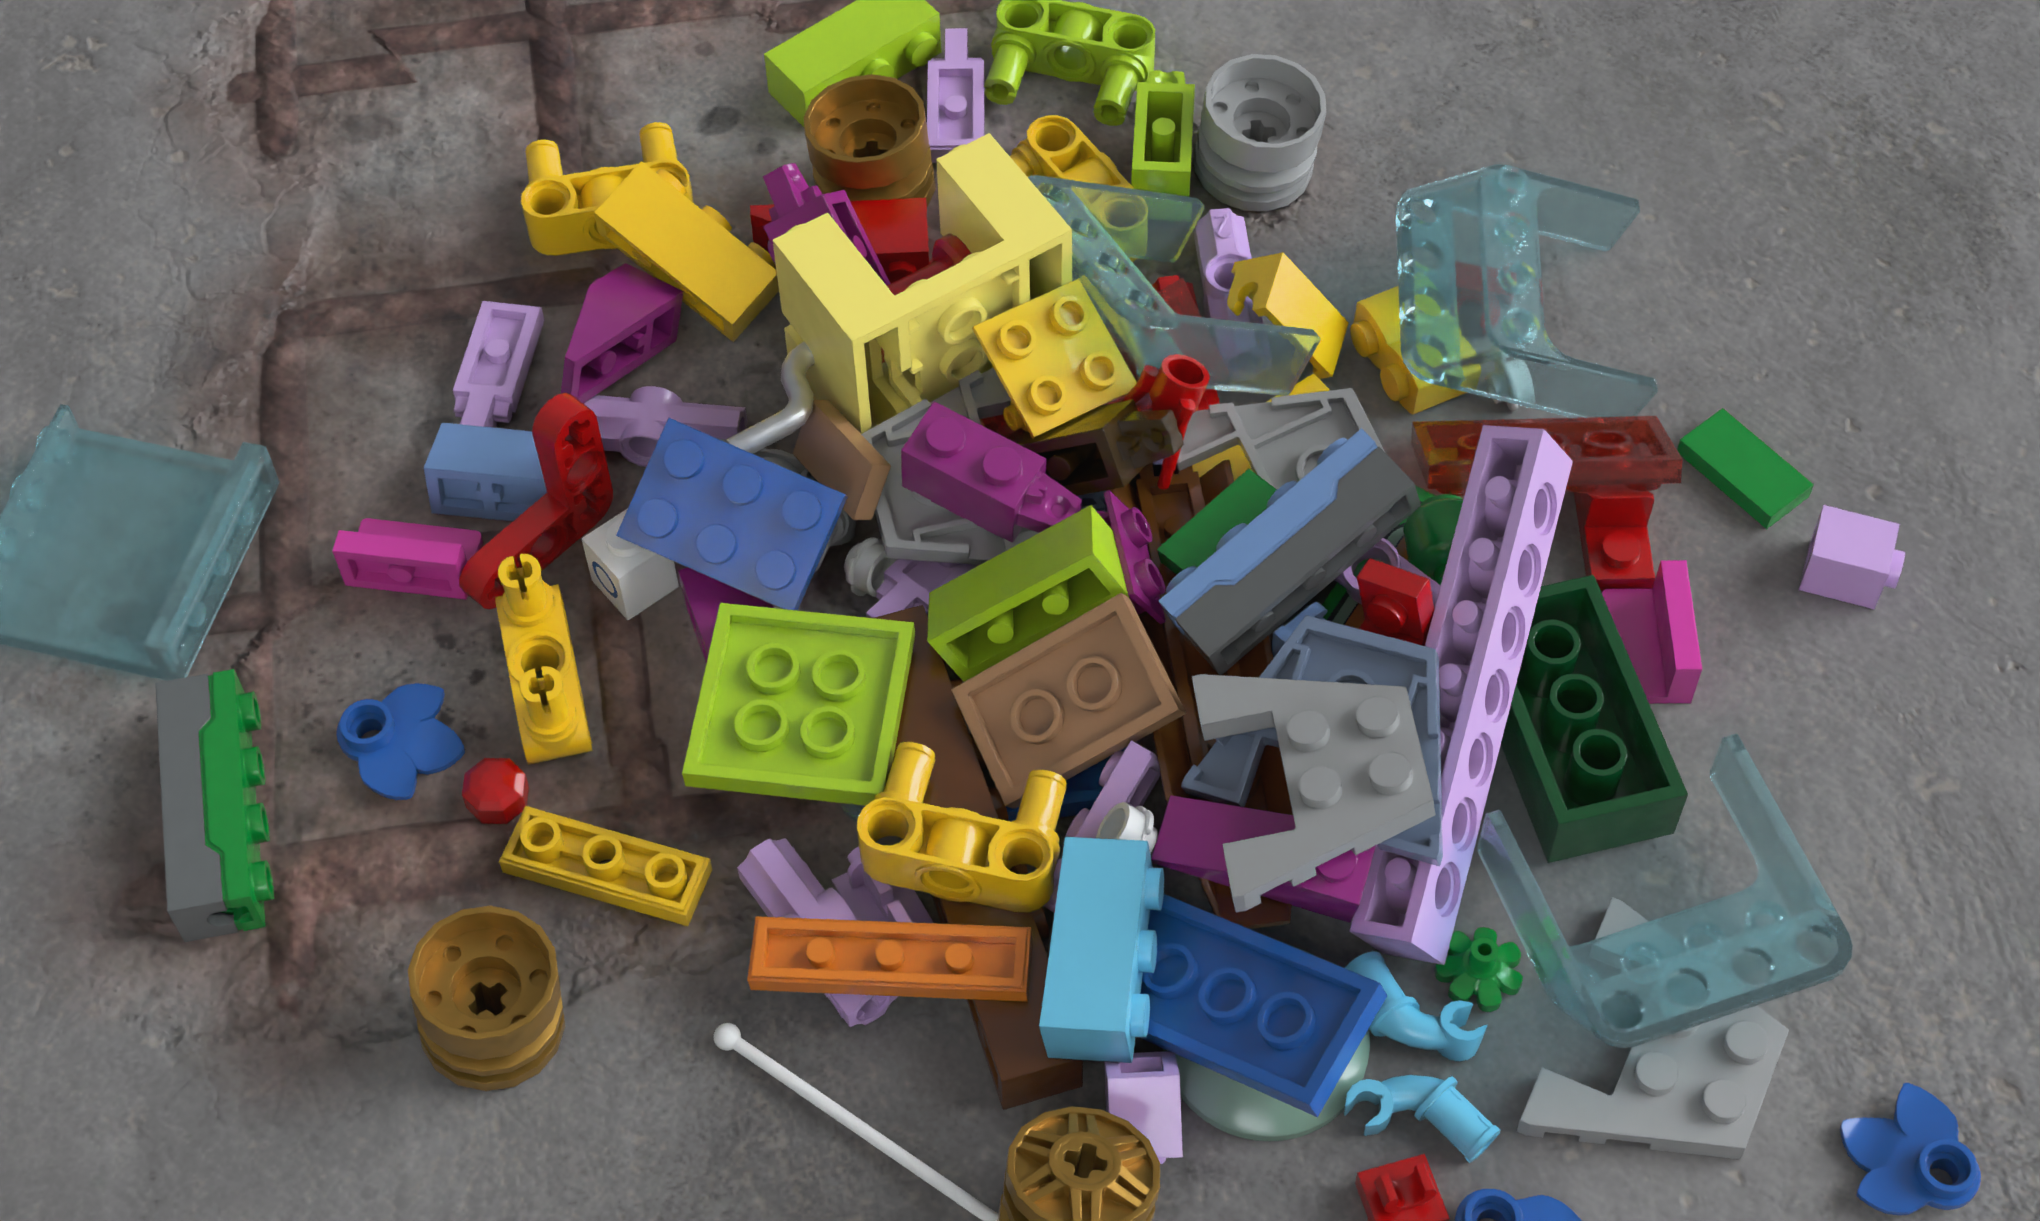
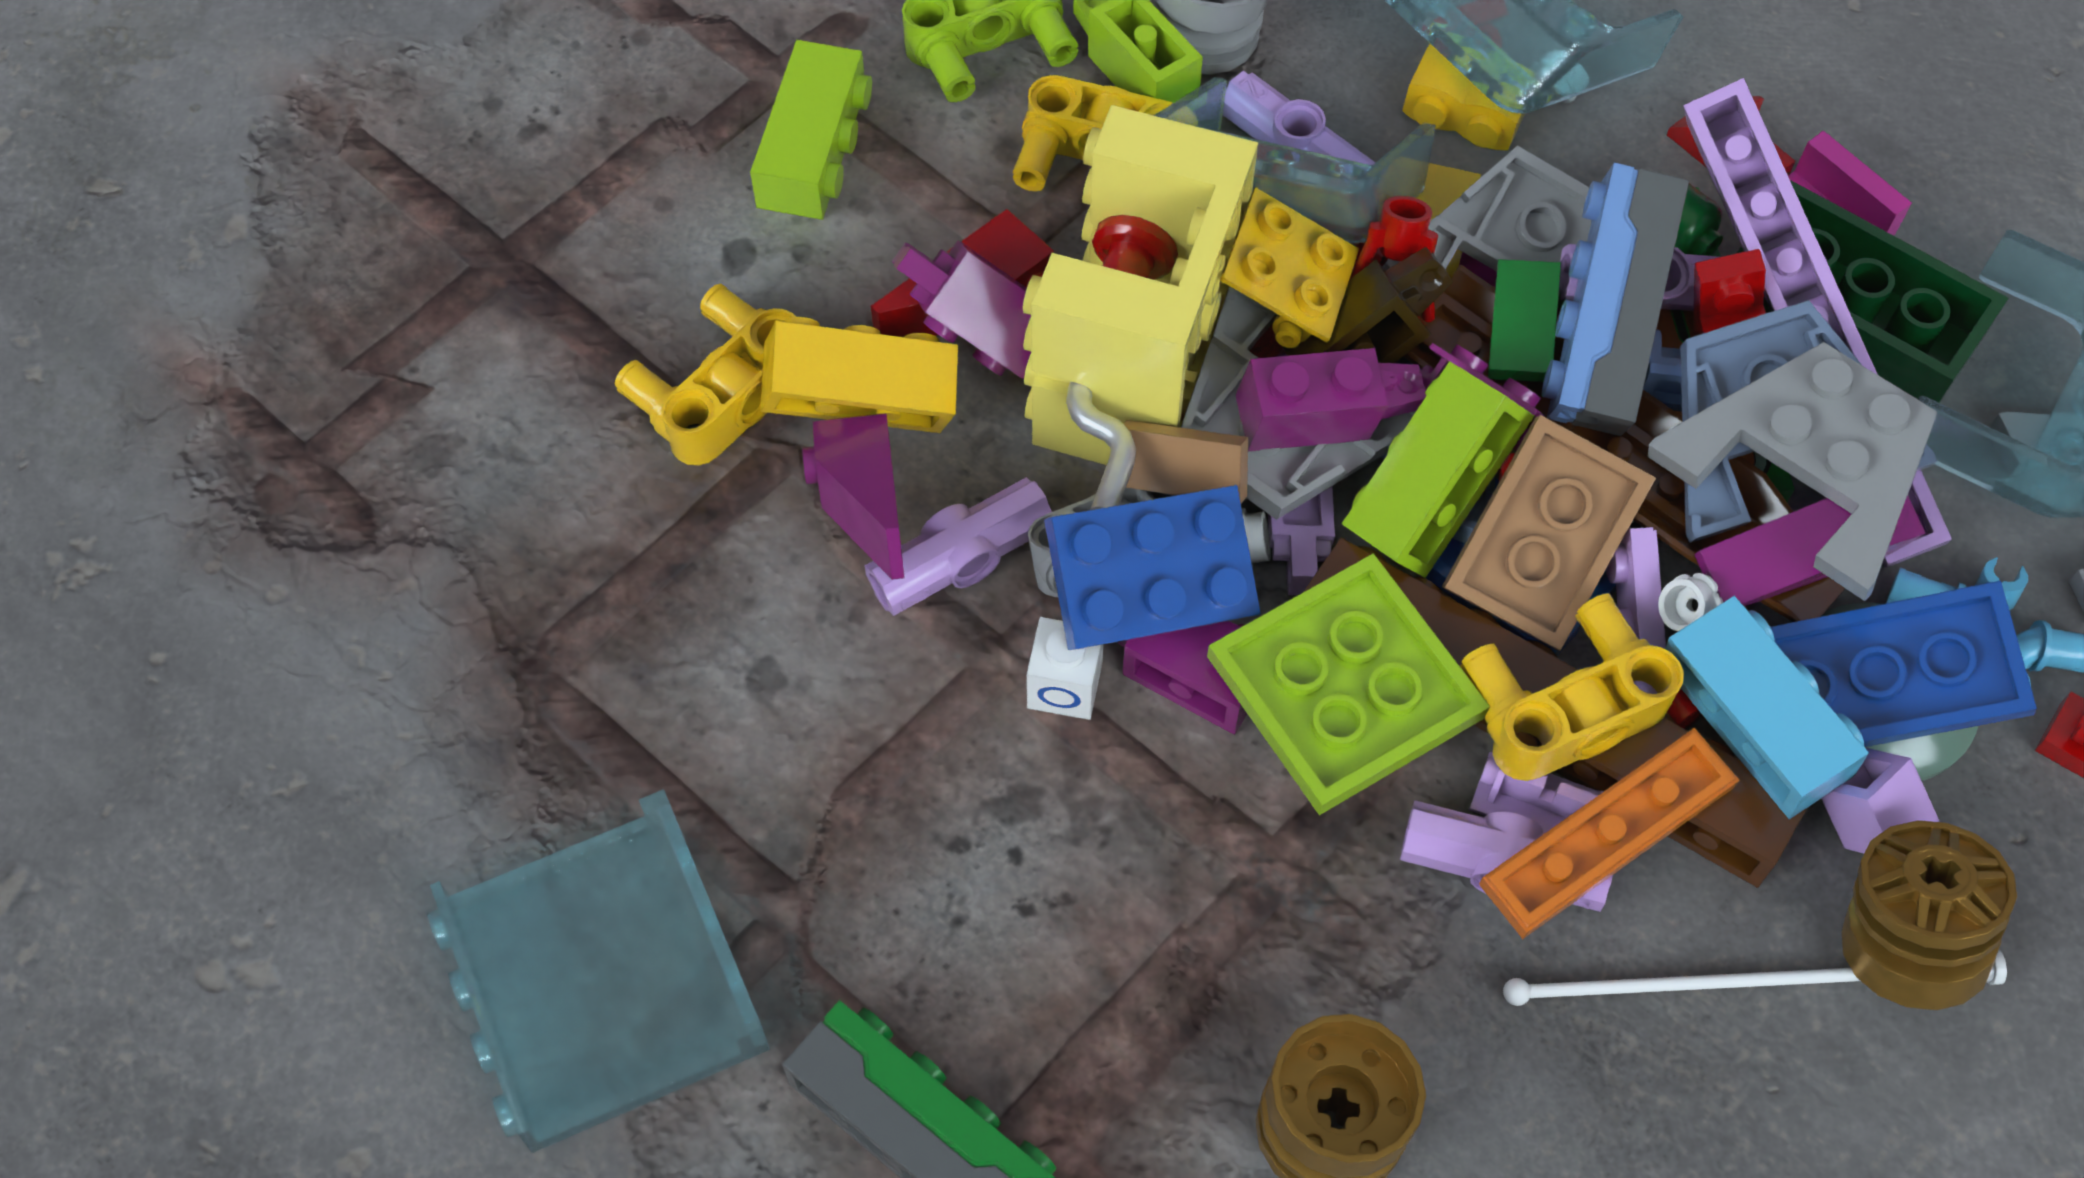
camera: 40 degrees left, 5 degrees up
(405, 557) = (864, 795): dark pink panel -> none
(407, 740) = (1024, 951): blue plate -> none
(483, 472) = (870, 673): medium blue hinge -> none
(495, 790) = (1138, 936): red tile -> none
(496, 363) = (776, 587): lavender hinge -> none
(537, 639) = (1047, 777): yellow piece -> none
(575, 499) = (962, 689): red beam -> none
(638, 877) = (1249, 945): yellow tile -> none
(870, 140) = (920, 188): pearl gold wheel -> none
(955, 96) = (931, 118): lavender hinge -> none
(1289, 300) = (1368, 115): yellow hinge -> none
(1480, 969) = (1970, 530): green plant -> none
(1603, 451) = (1645, 111): clear red plate -> none
(1744, 468) = (1766, 42): green tile -> none
(1852, 557) = (1902, 60): lavender brick -> none

